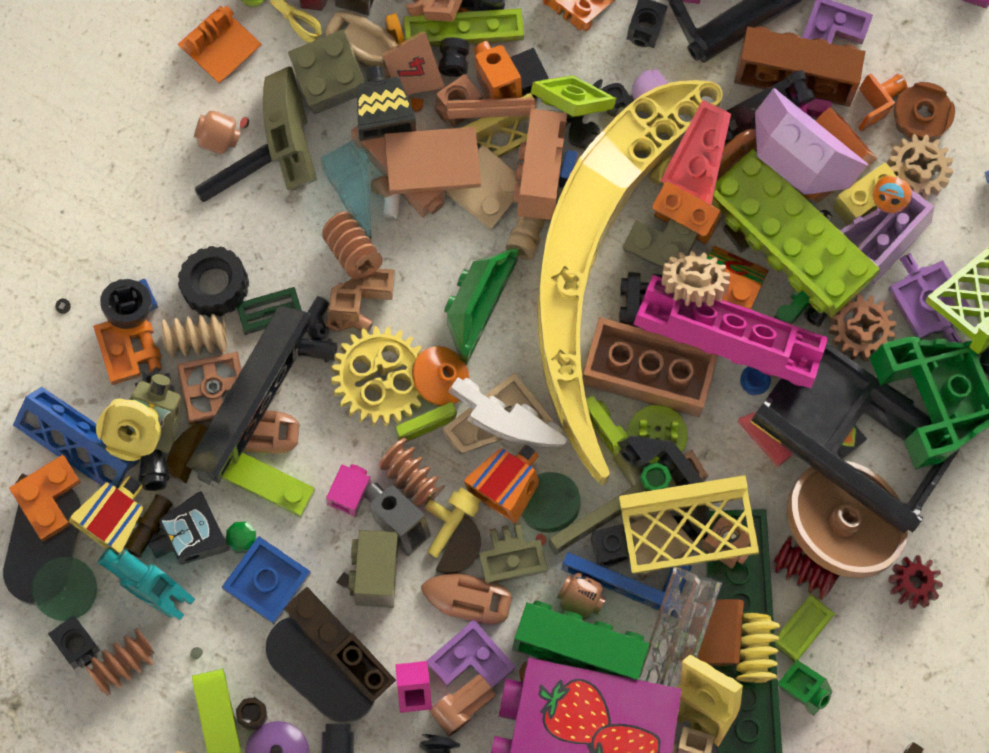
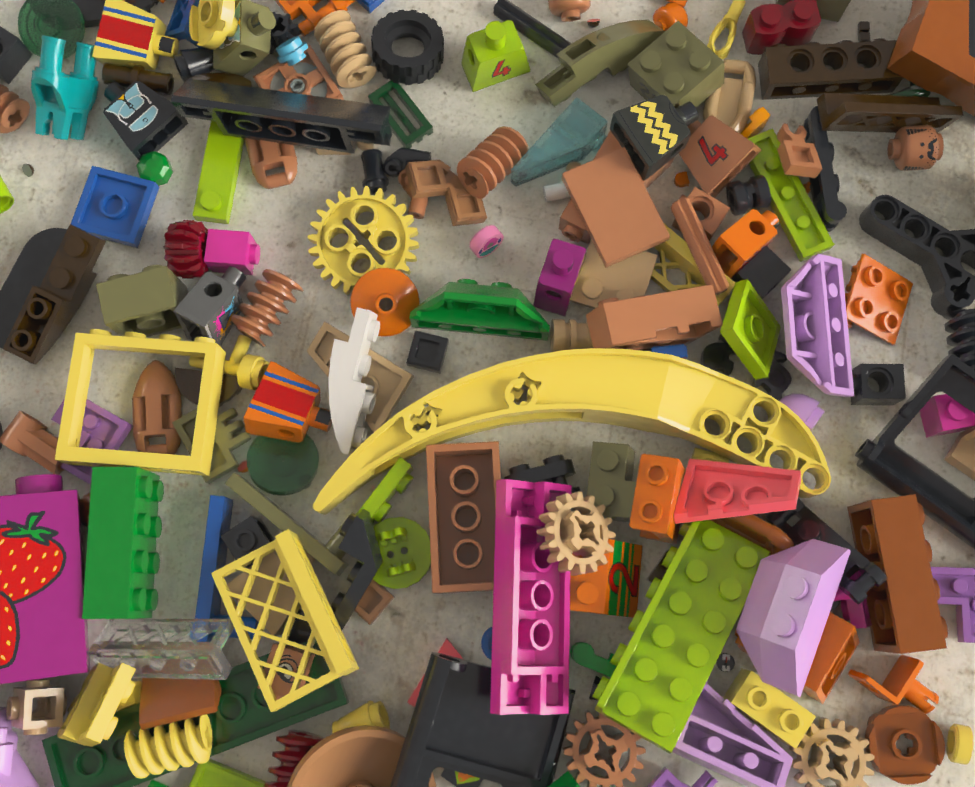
camera: 80 degrees right, 5 degrees up
(184, 377) = (291, 51): none -> medium azure plate
(253, 209) = (494, 55): none -> lime torso
(267, 59) = (670, 14): none -> orange piece
(335, 522) = (186, 248): none -> dark red gear
(409, 585) = (77, 390): none -> light yellow window
(413, 686) = (36, 385): dark pink brick -> none
(416, 276) = (486, 241): none -> bright pink tile
(426, 423) = (326, 303): lime tile -> none
(470, 225) = (559, 275): none -> magenta torso
(494, 358) = (427, 352): none -> black tile
(581, 595) = (184, 528): nougat head -> none
(588, 45) = (818, 325): none -> lavender wedge
(655, 477) = (331, 564): green tile -> none
(779, 500) = (367, 714): none -> light yellow cone
(892, 194) = (772, 738): orange piece -> none
(936, 73) = (959, 744): none -> light yellow tile

